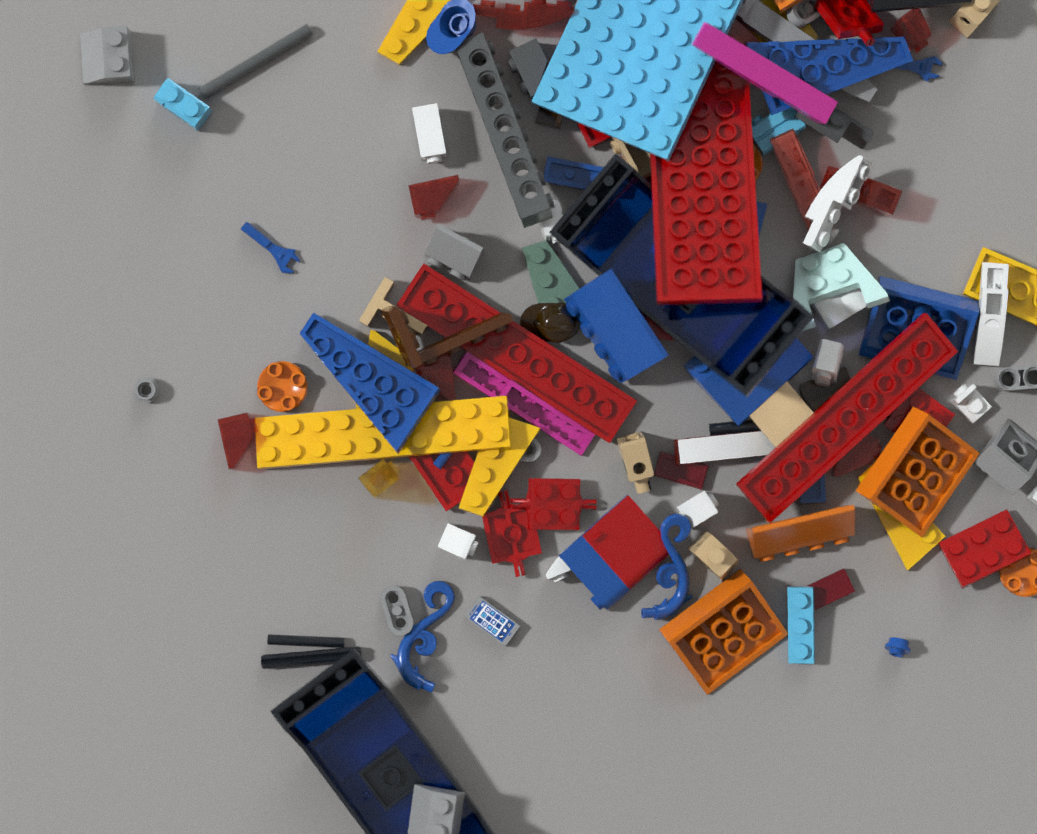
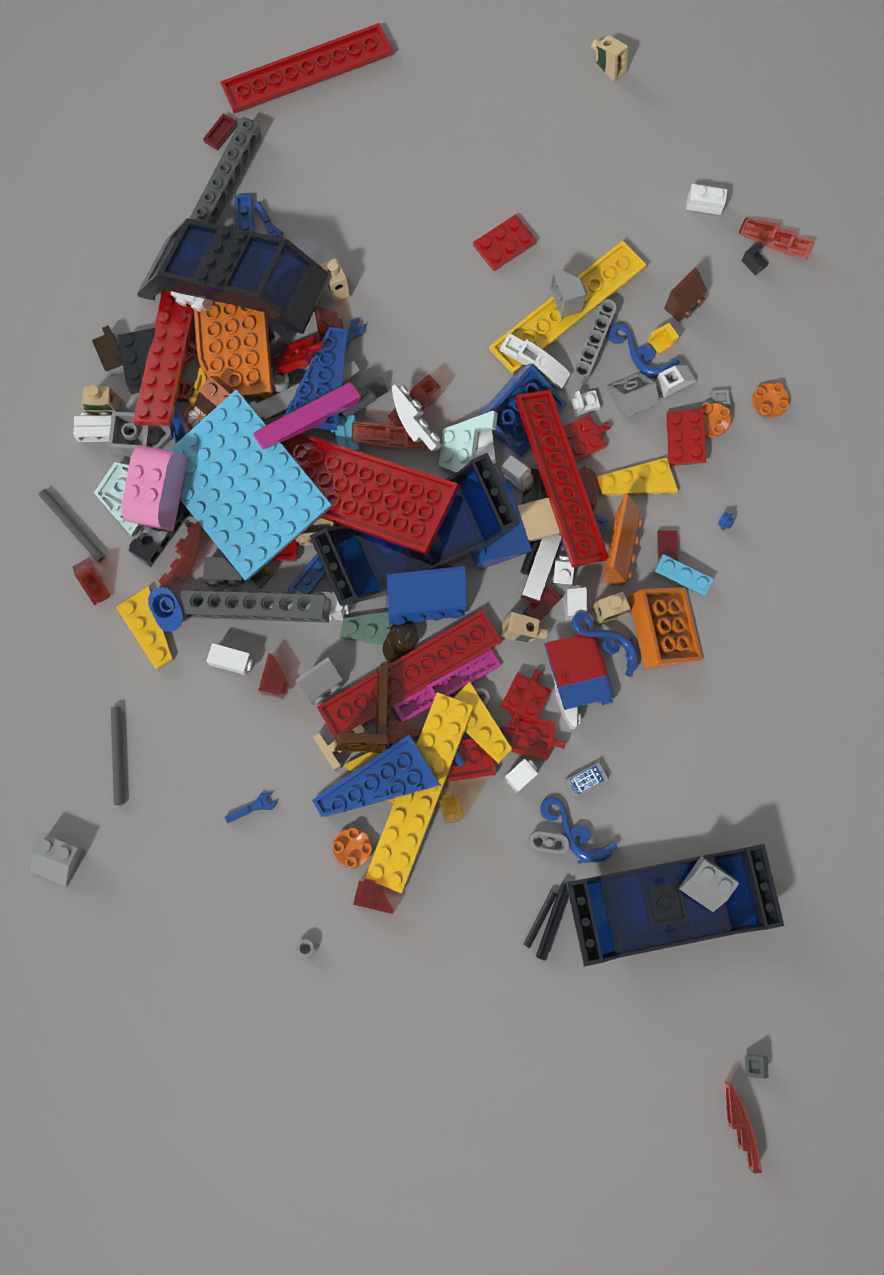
camera: 70 degrees left, 10 degrees down
(182, 104) = (118, 820): medium azure brick -> none
(731, 474) = (563, 570): none -> white bracket
(917, 471) = (616, 451): orange slope -> none

